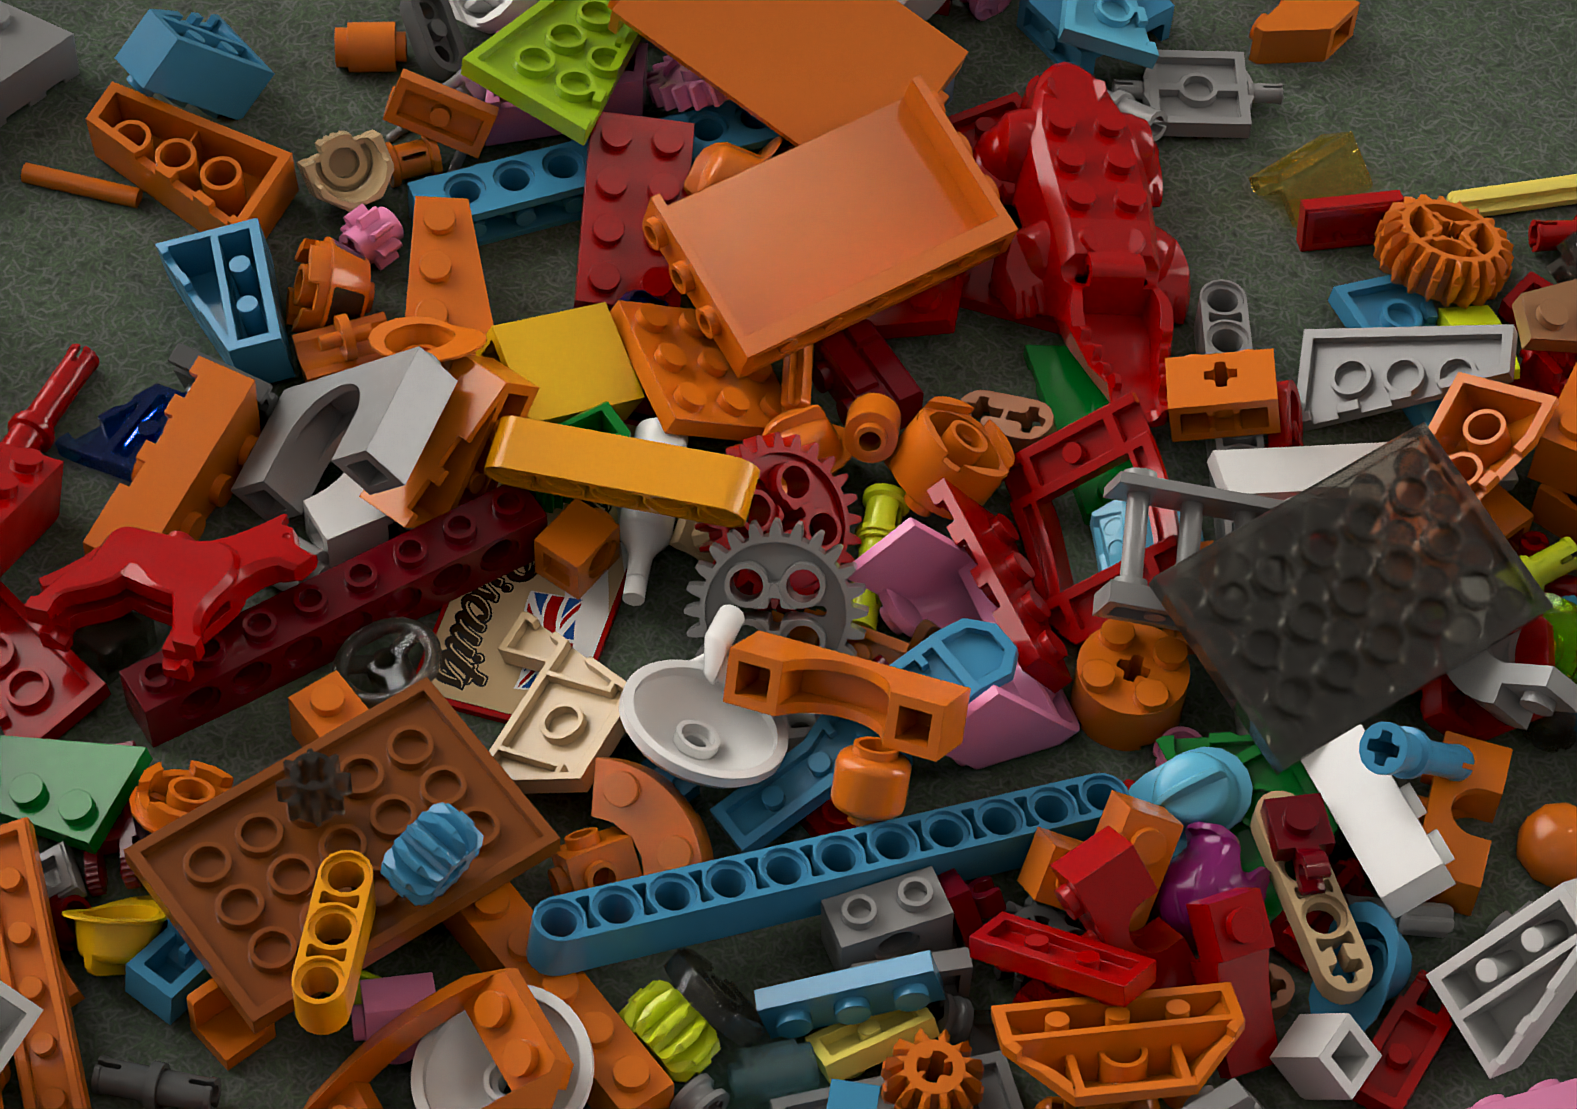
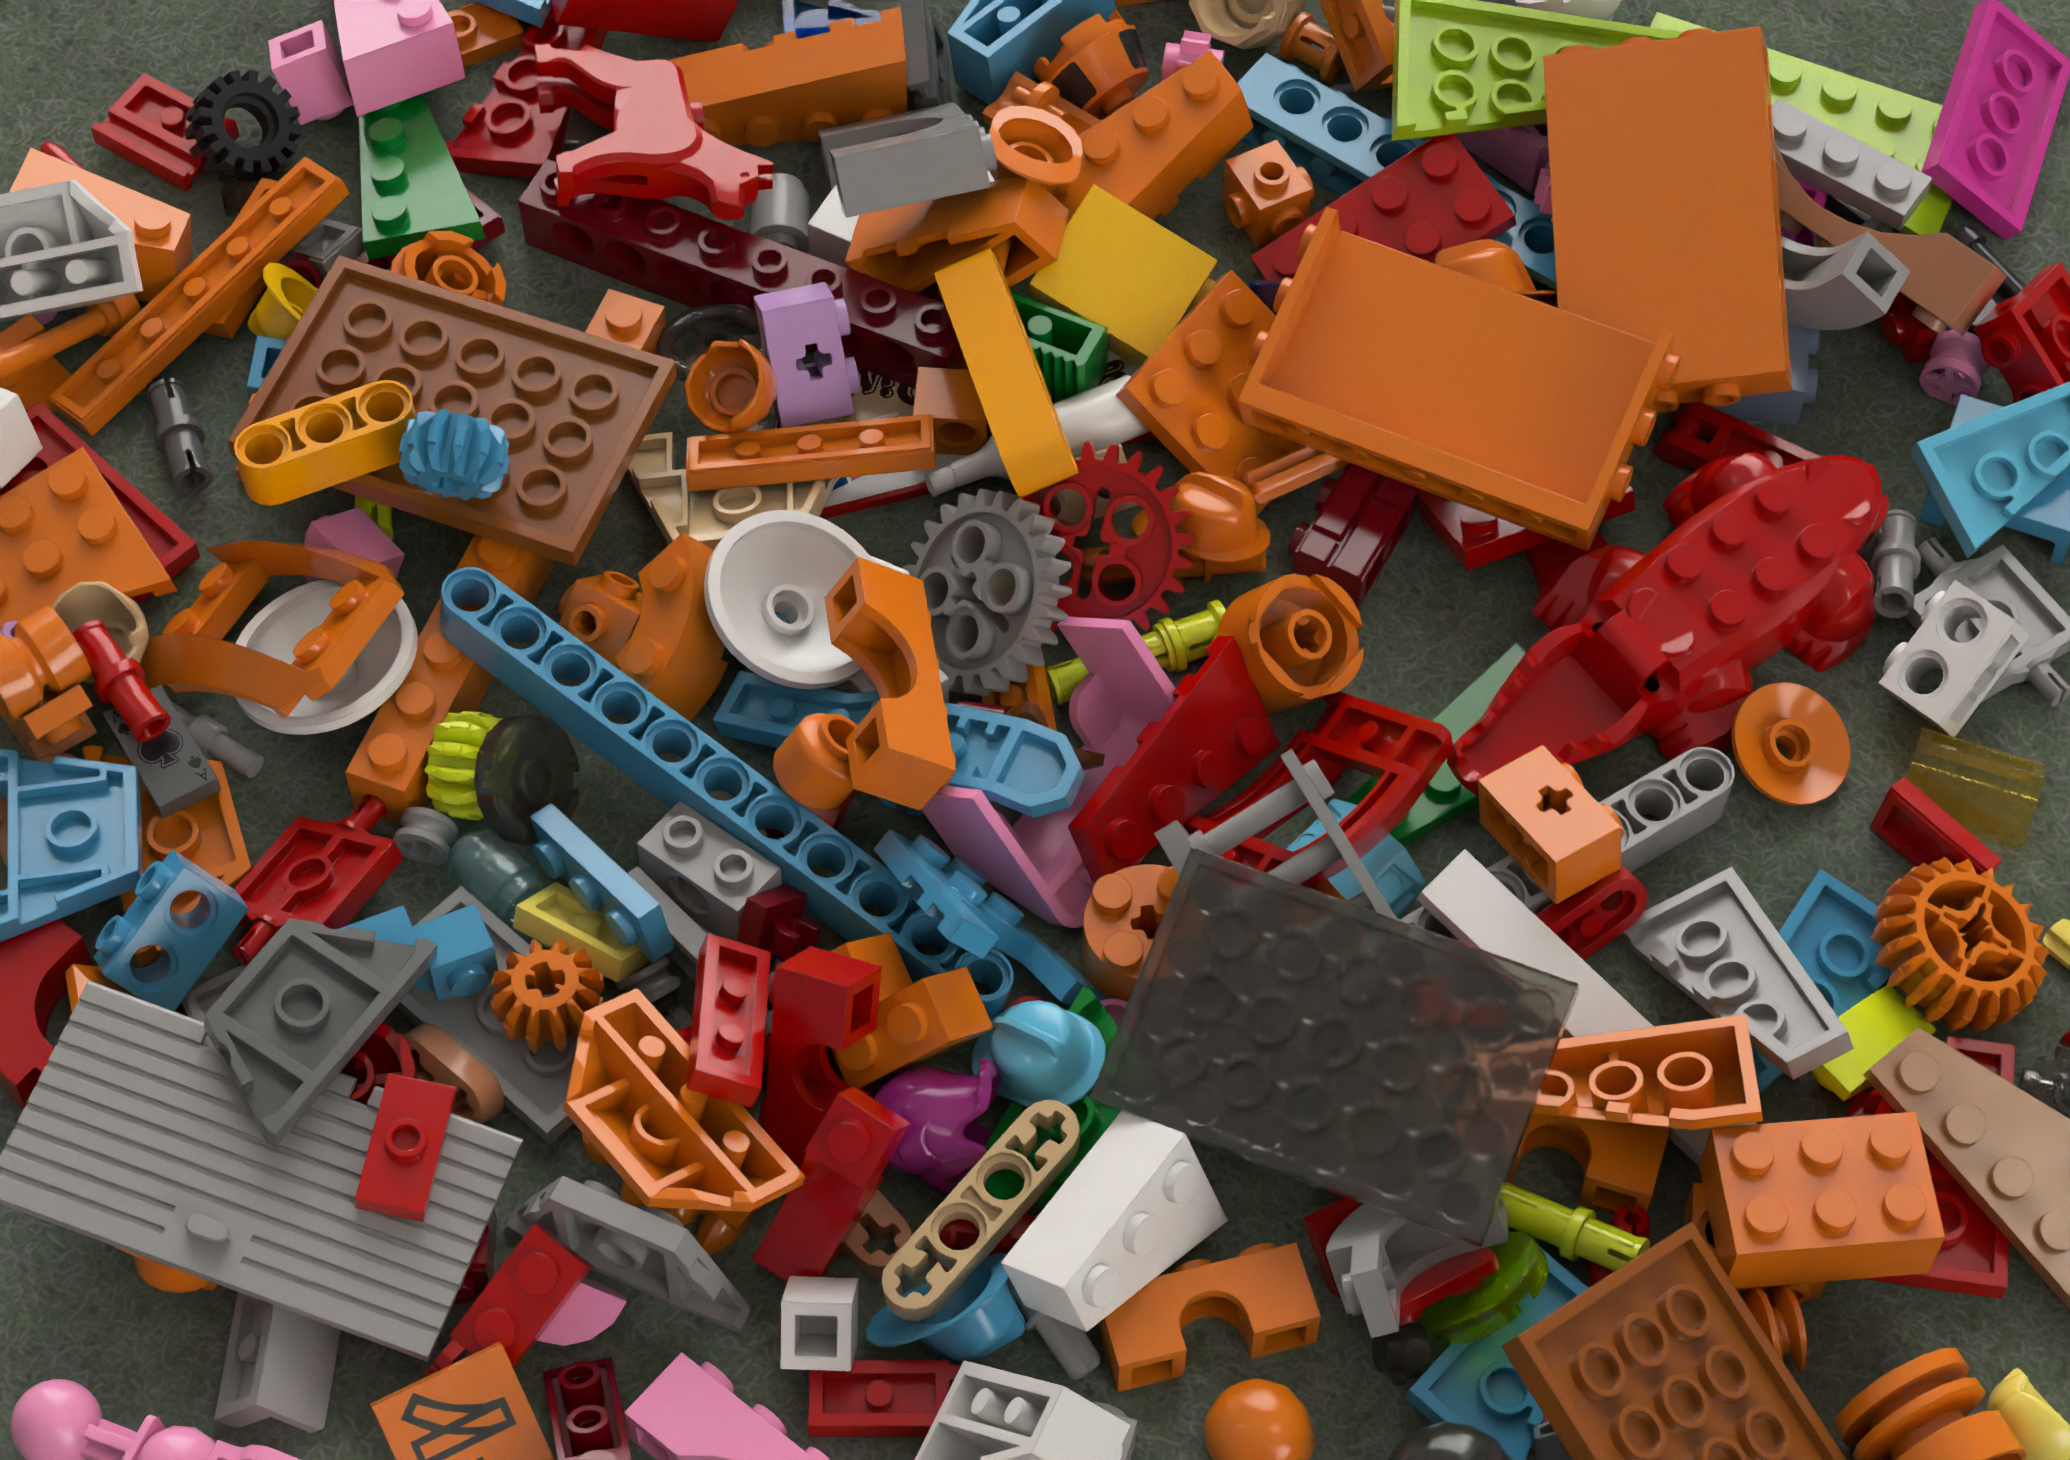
camera: 60 degrees right, 5 degrees up
(314, 787) = (477, 339): clear smoke gear -> none
(462, 661) = (730, 387): none -> orange hair
(465, 602) = (787, 324): none -> lavender brick
(530, 258) = (1266, 192): none -> orange brick
(556, 651) = (810, 453): none -> orange tile
(719, 640) = (906, 555): white arm -> none
(872, 428) = (1265, 552): orange brick -> none
(1012, 414) = (1413, 672): nougat beam -> none
(1054, 763) = (973, 915): none -> dark azure wing
(1222, 246) = (1806, 729): none -> orange dish
(1240, 120) = (1967, 667): none -> white brick
(1301, 833) = (1023, 1150): dark red plate -> none
(1410, 753) = (1166, 1188): dark azure pin -> none

